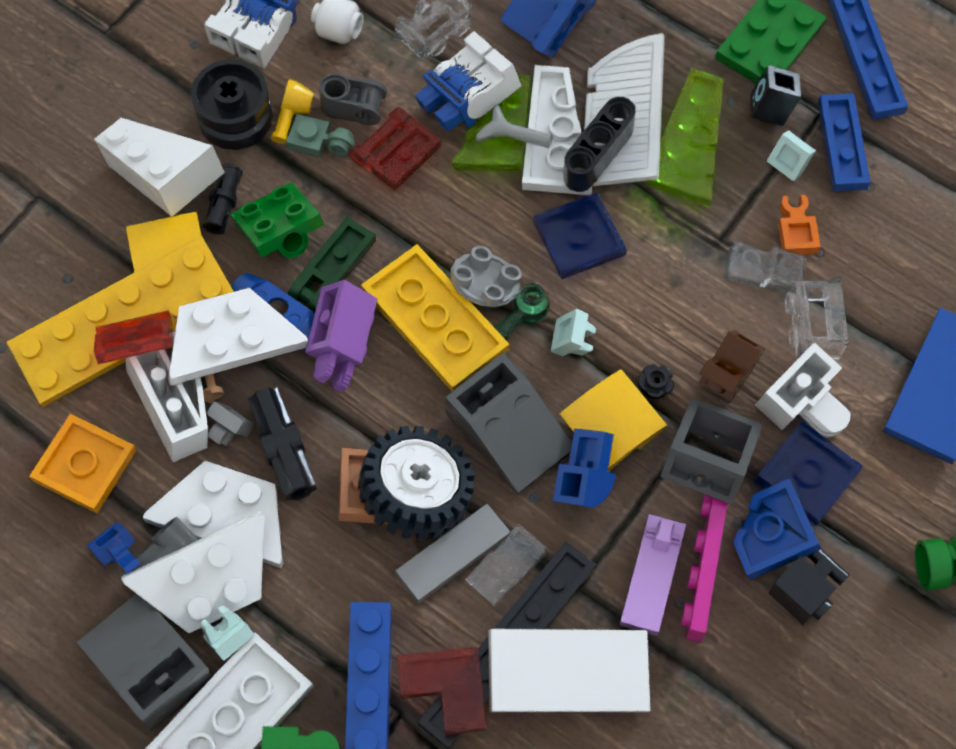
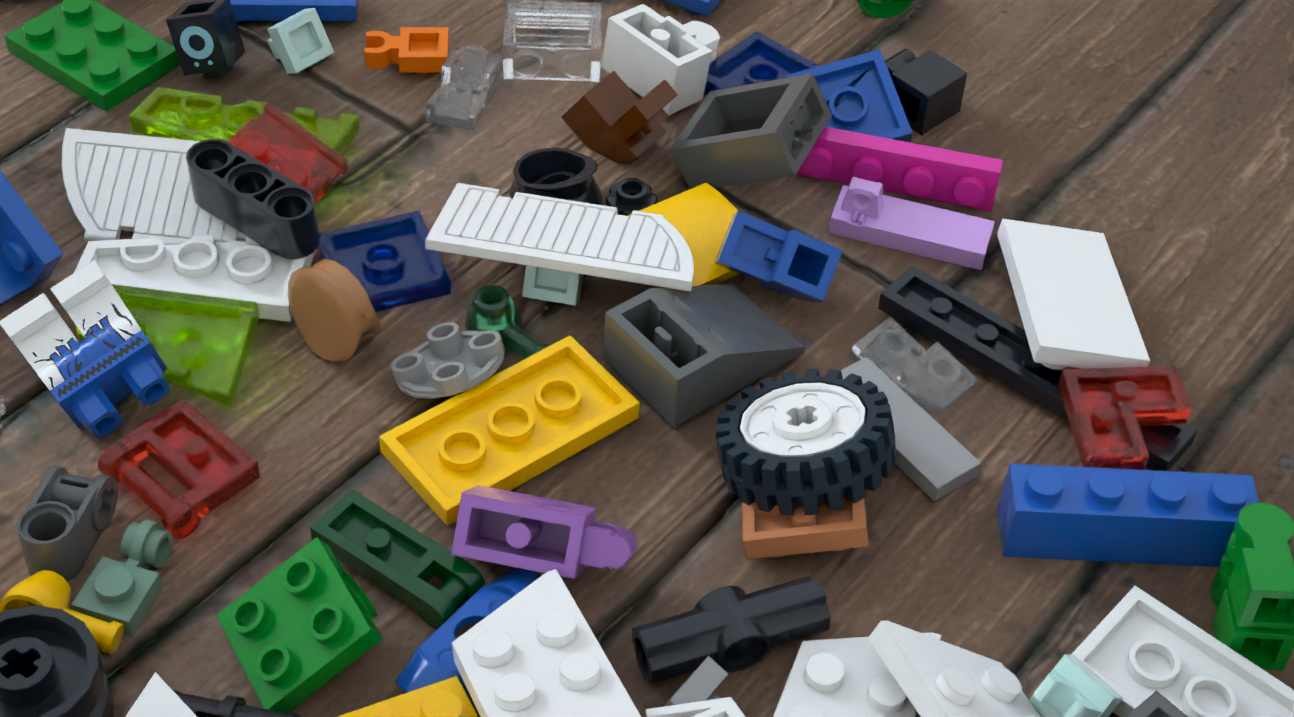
camera: 90 degrees left, 20 degrees down
(502, 128) = (186, 316): light grey piece -> none
(514, 206) = (331, 309): none -> medium nougat piece
(585, 329) = (563, 237): none -> white piece
(643, 157) = (291, 151): none -> clear red plate
(662, 332) = (557, 174): none -> black piece

